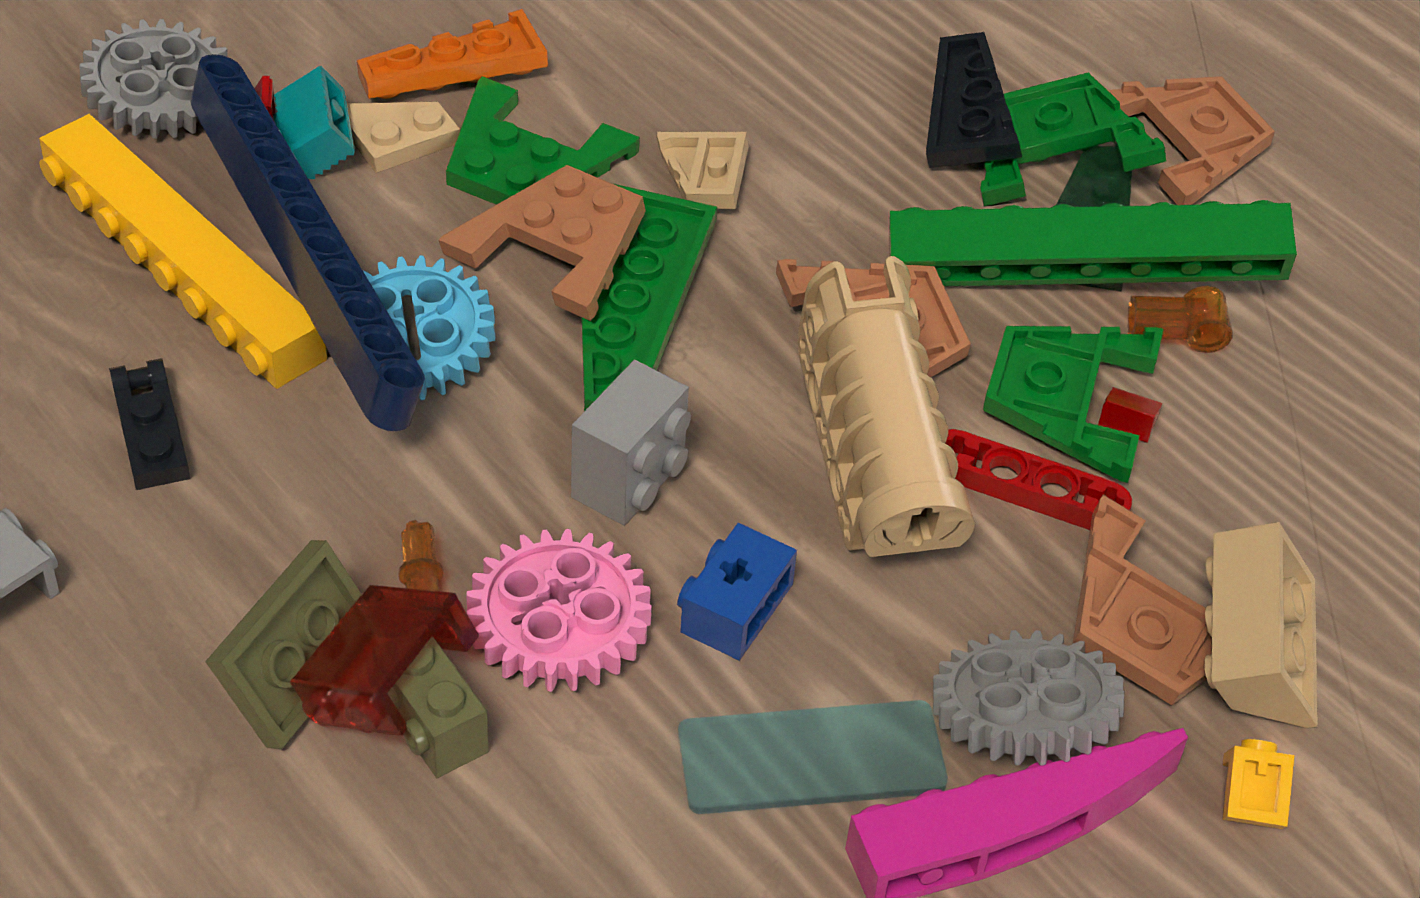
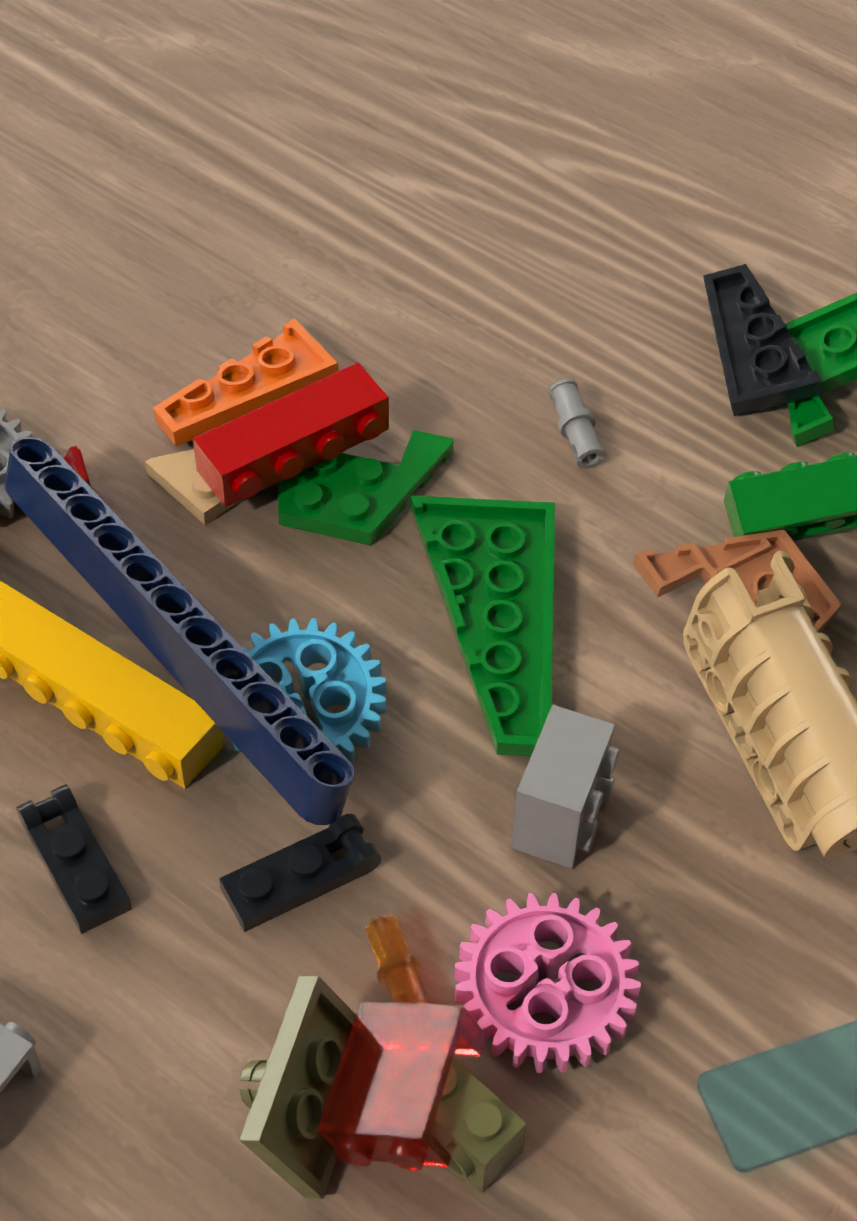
camera: 10 degrees left, 5 degrees up
(315, 121) = (135, 485): teal brick -> none
(358, 476) = (299, 873): none -> black plate
(477, 99) = (291, 434): none -> red brick
(565, 217) = (420, 546): nougat wing -> none
(706, 164) = (525, 457): tan wing -> none
(736, 590) = (701, 950): blue brick -> none
(766, 145) = (576, 423): none -> light grey pin

